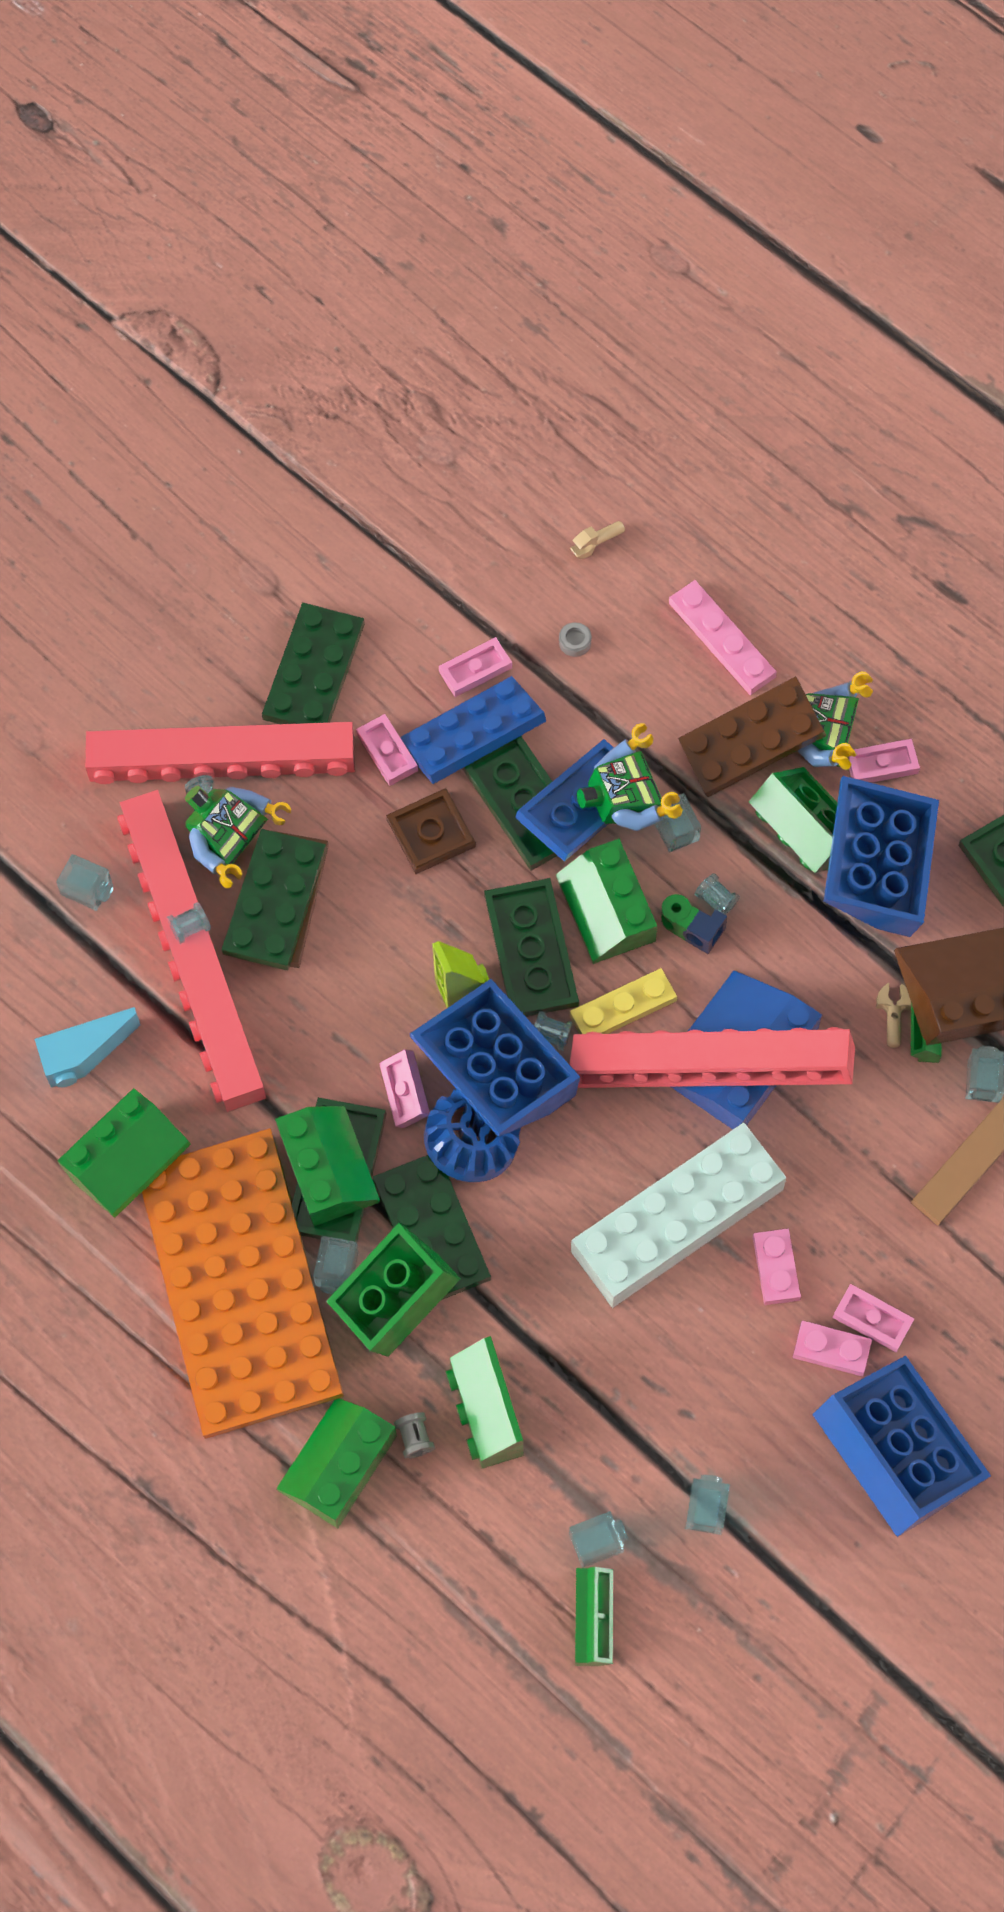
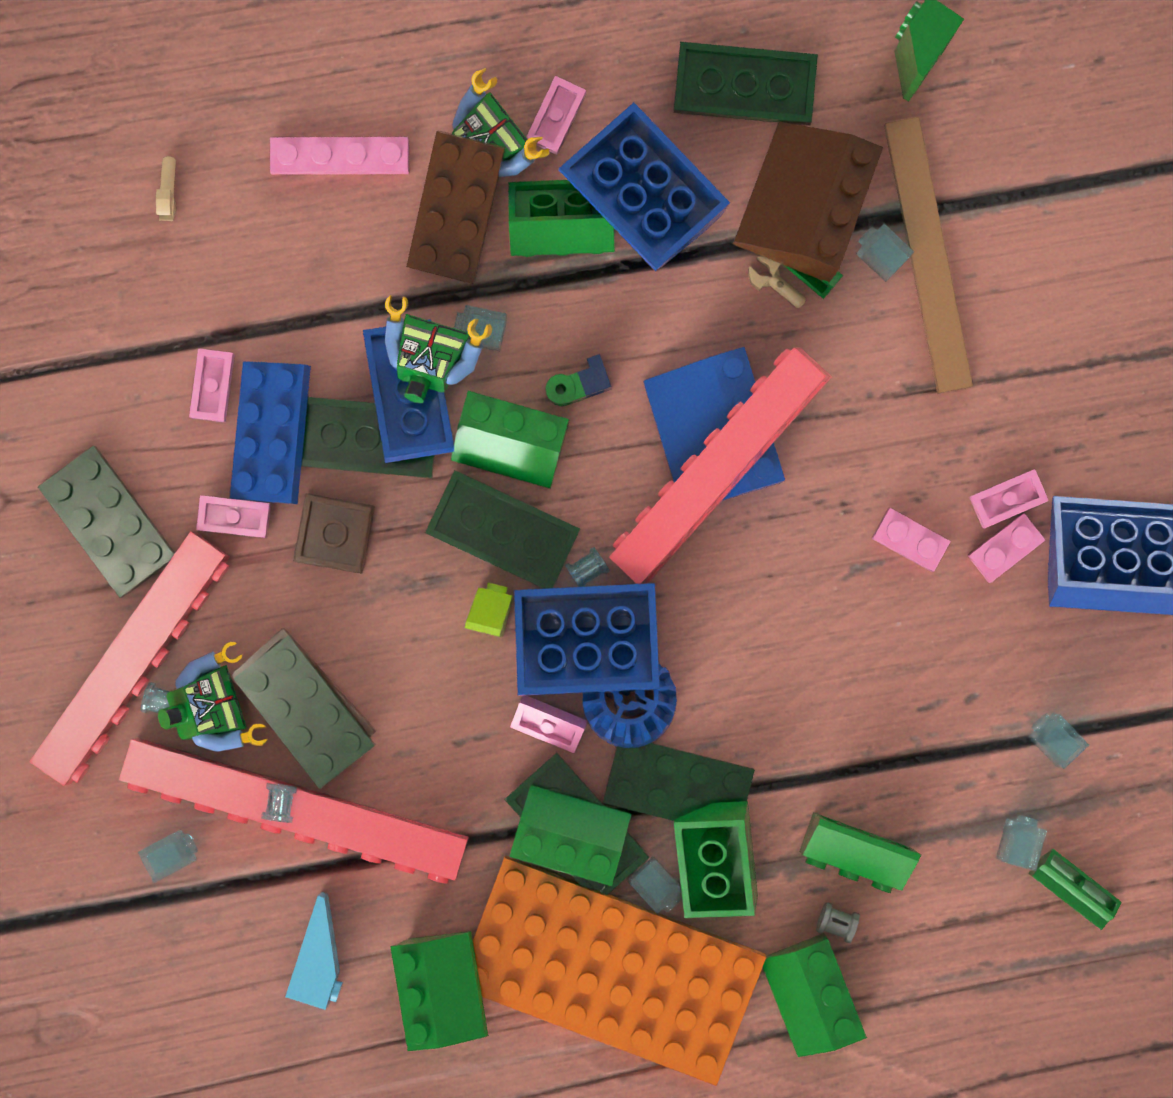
camera: 55 degrees left, 20 degrees up
(575, 639) = (247, 280): light grey tile -> none
(624, 1004) = (606, 493): light yellow plate -> none
(678, 1214) = (817, 586): light aqua brick -> none
(716, 894) = (571, 345): clear light blue bush -> none

